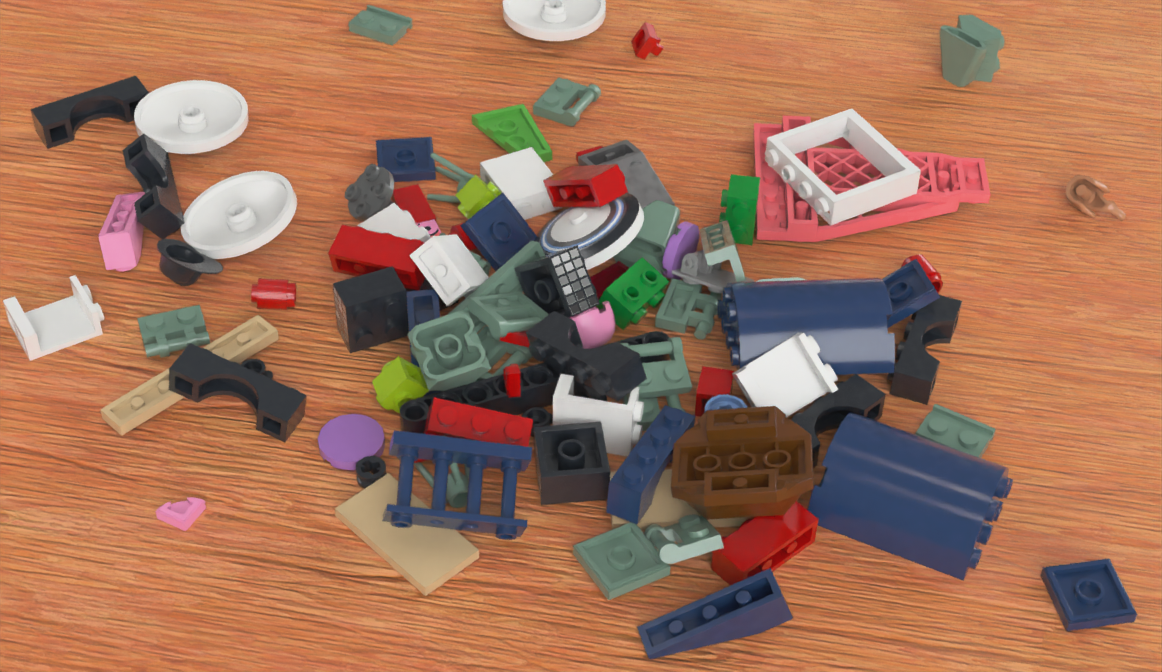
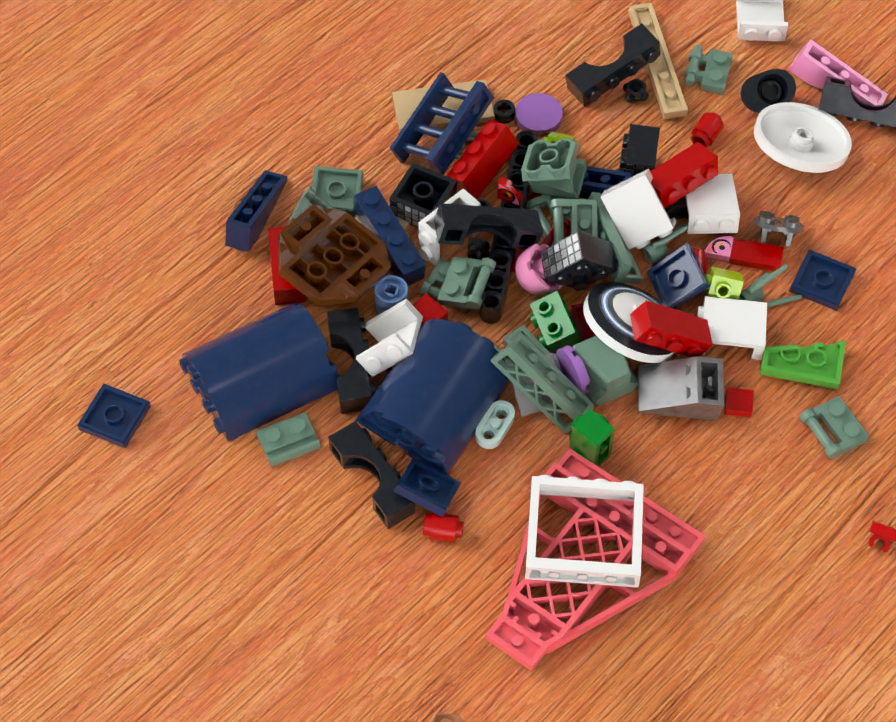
camera: 125 degrees right, 15 degrees up
(181, 513) = (541, 16): bright pink tile -> none

